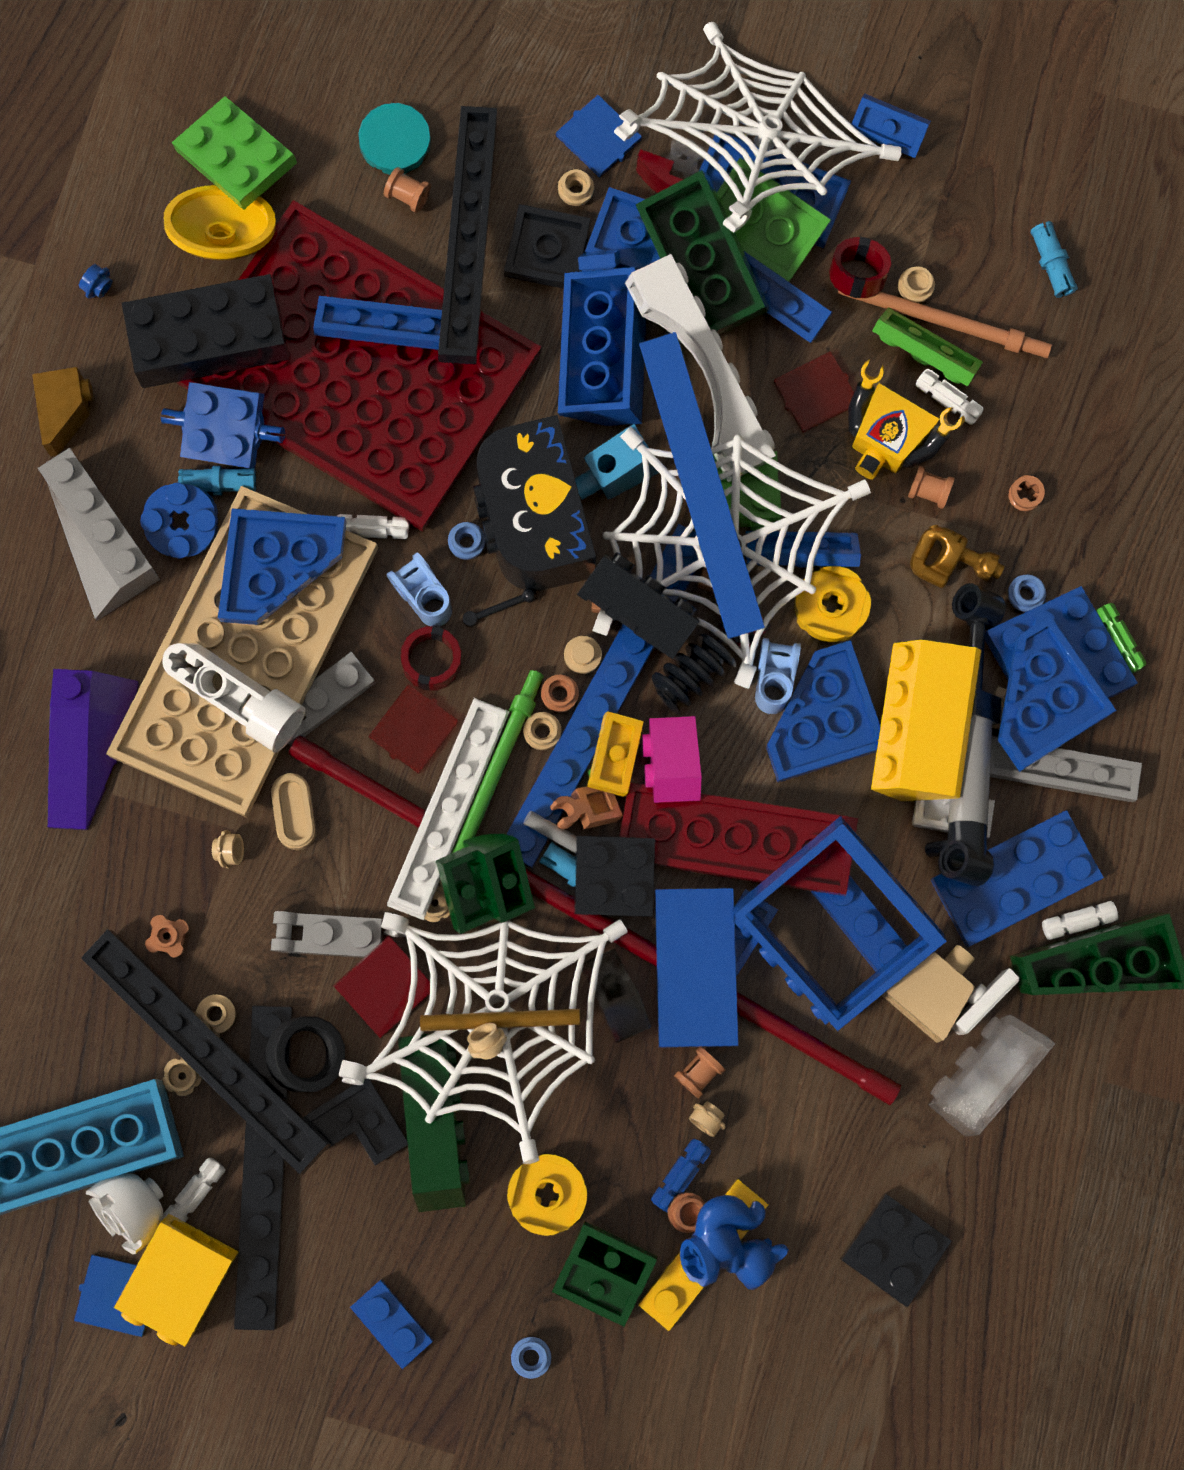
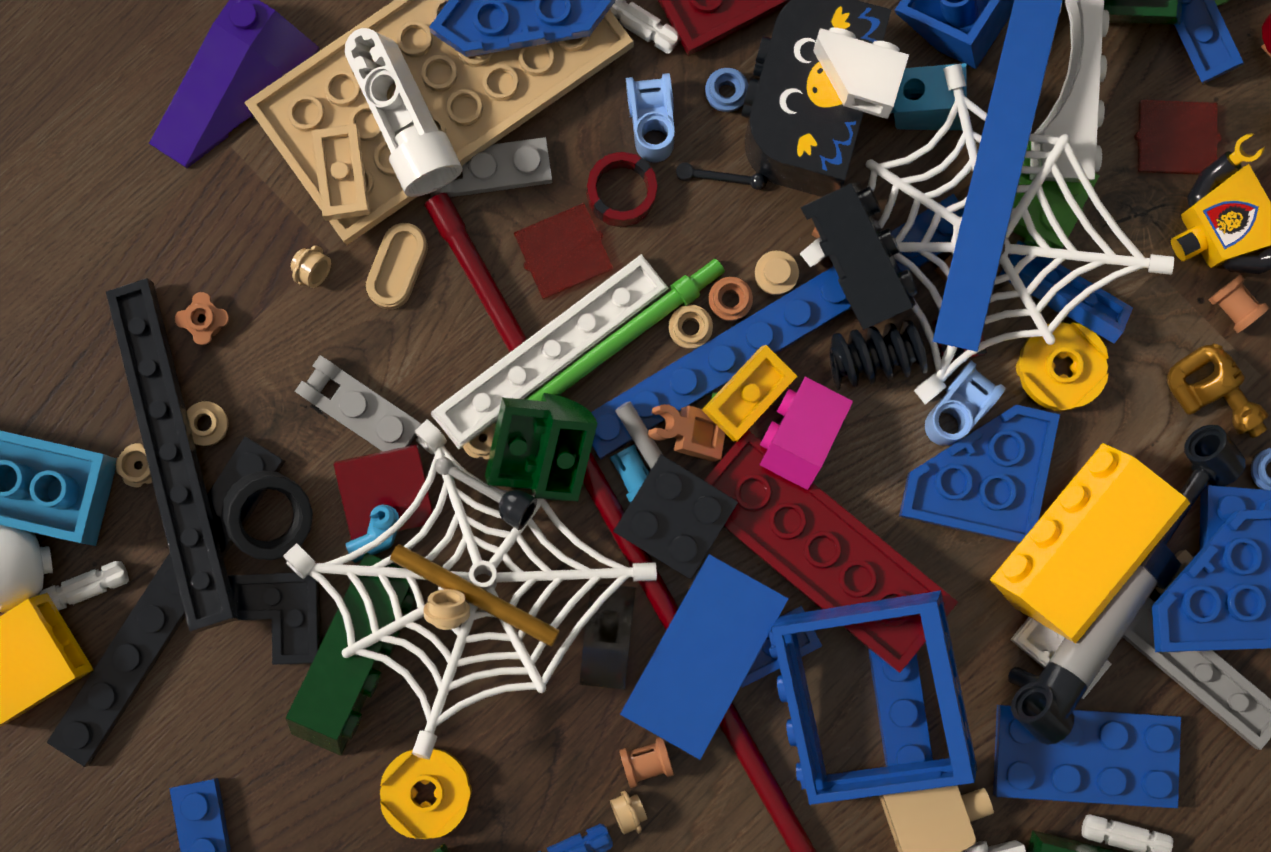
camera: 35 degrees right, 5 degrees up
(213, 763) = (340, 172): none -> tan plate
(395, 1007) = (381, 519): none -> dark azure arm
(490, 937) = (514, 506): none -> hinge
(562, 472) = (861, 72): none -> white slope

